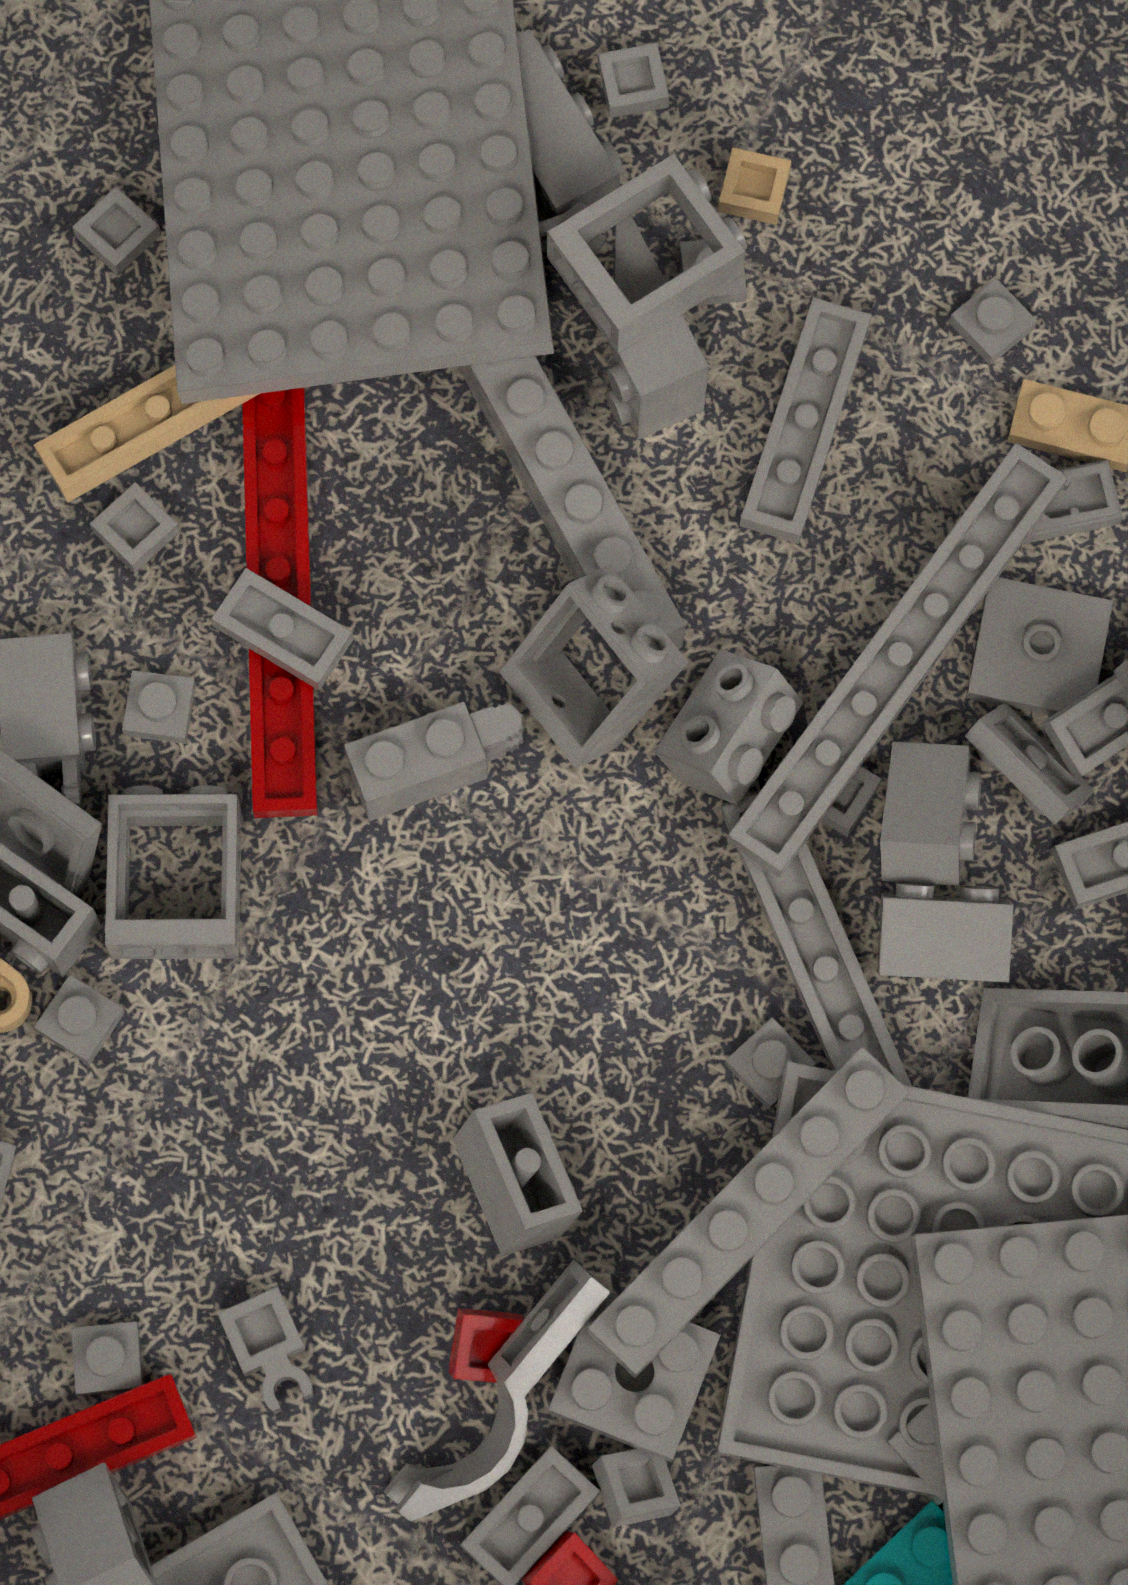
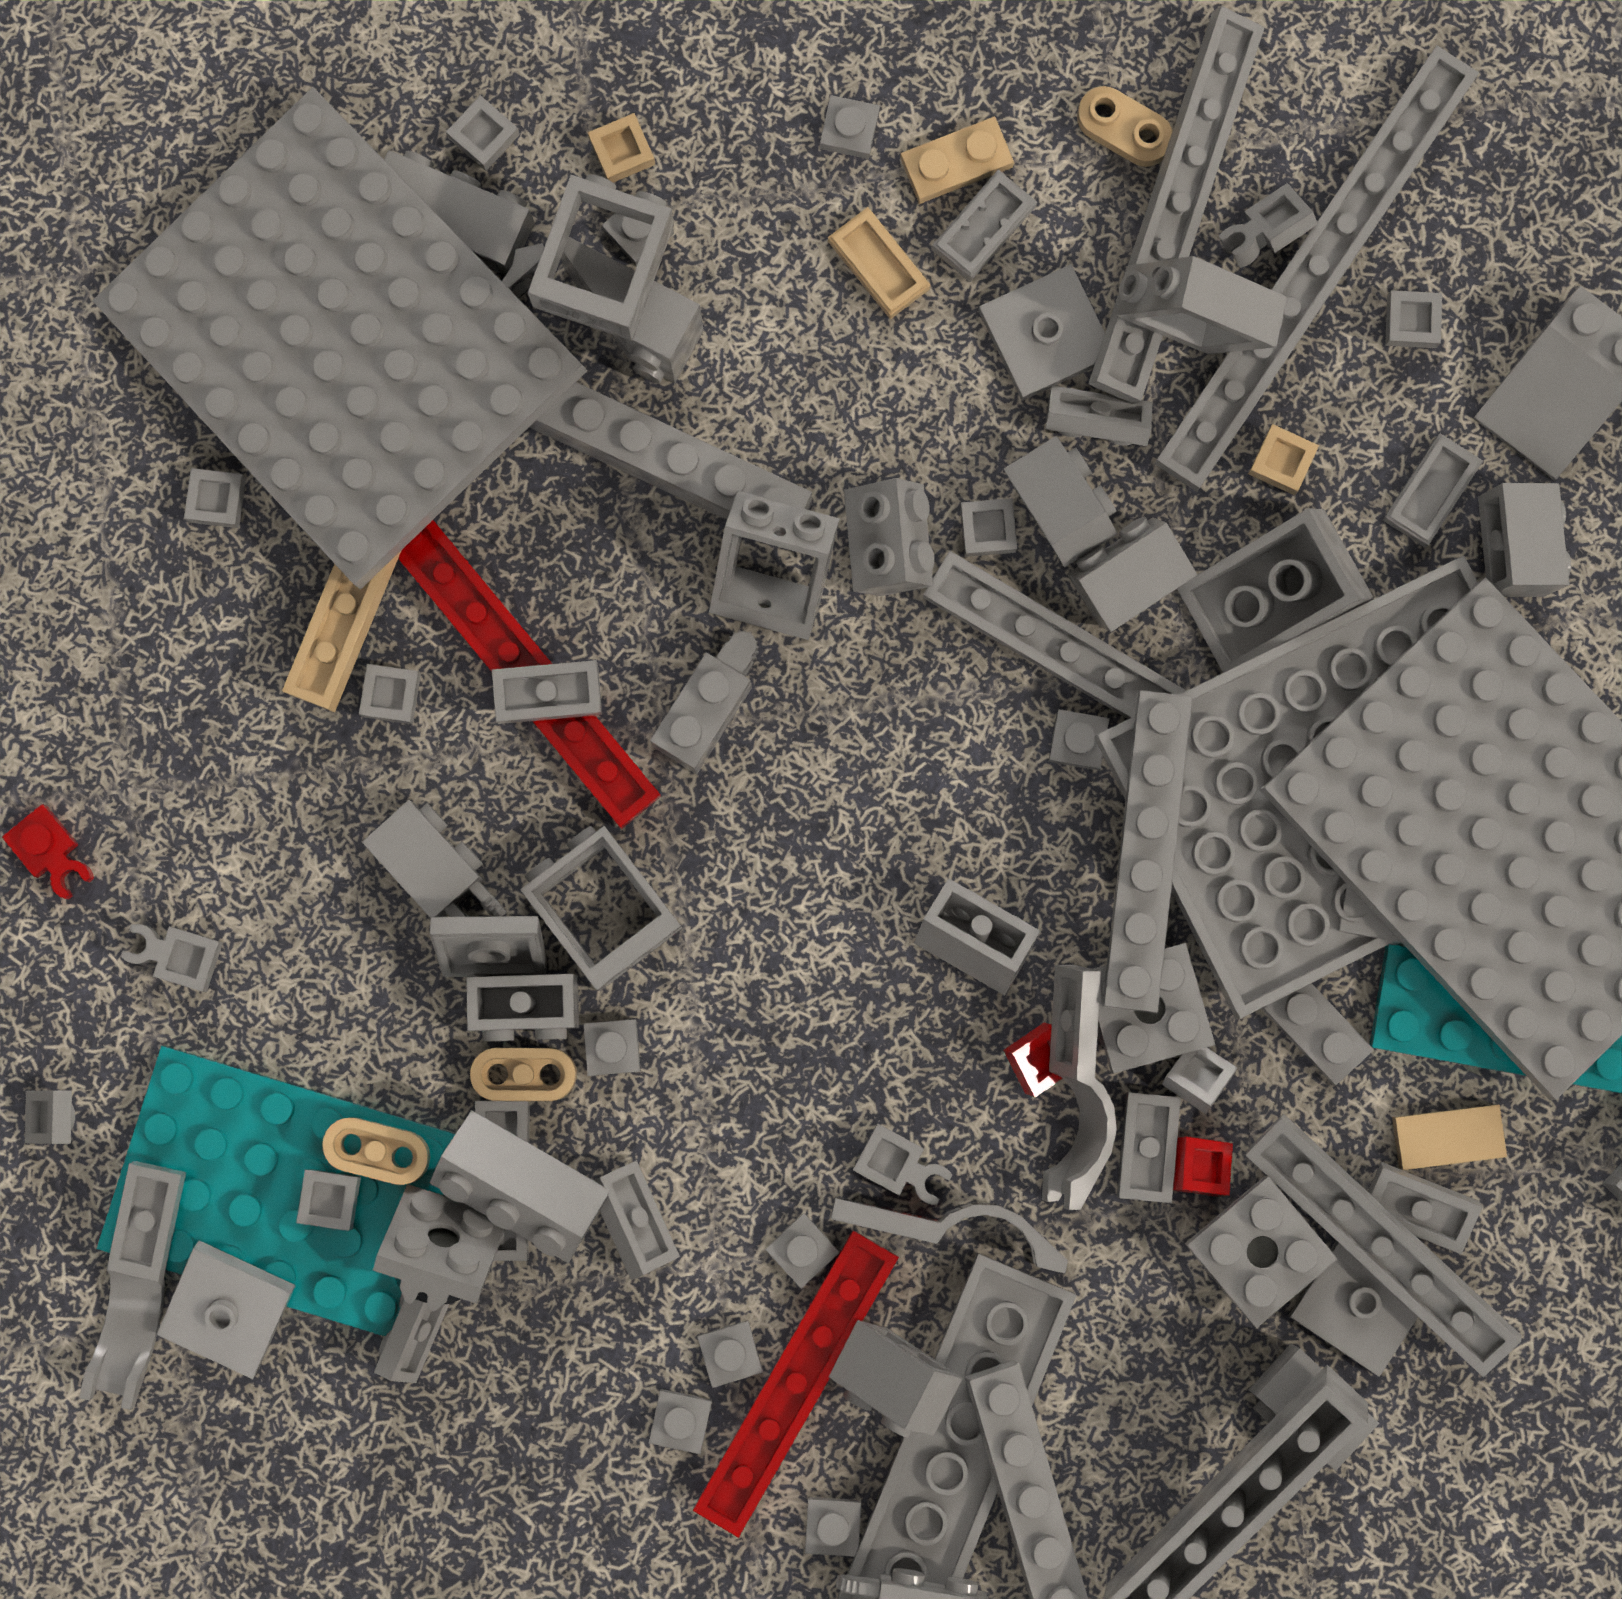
camera: 35 degrees left, 10 degrees up
(159, 707) = (500, 802): light grey plate -> none
(342, 1539) = (932, 1230): none -> light grey piece
(805, 420) = (778, 288): light grey plate -> none
(896, 660) = (966, 410): light grey plate -> none
(923, 467) = (879, 263): none -> tan tile

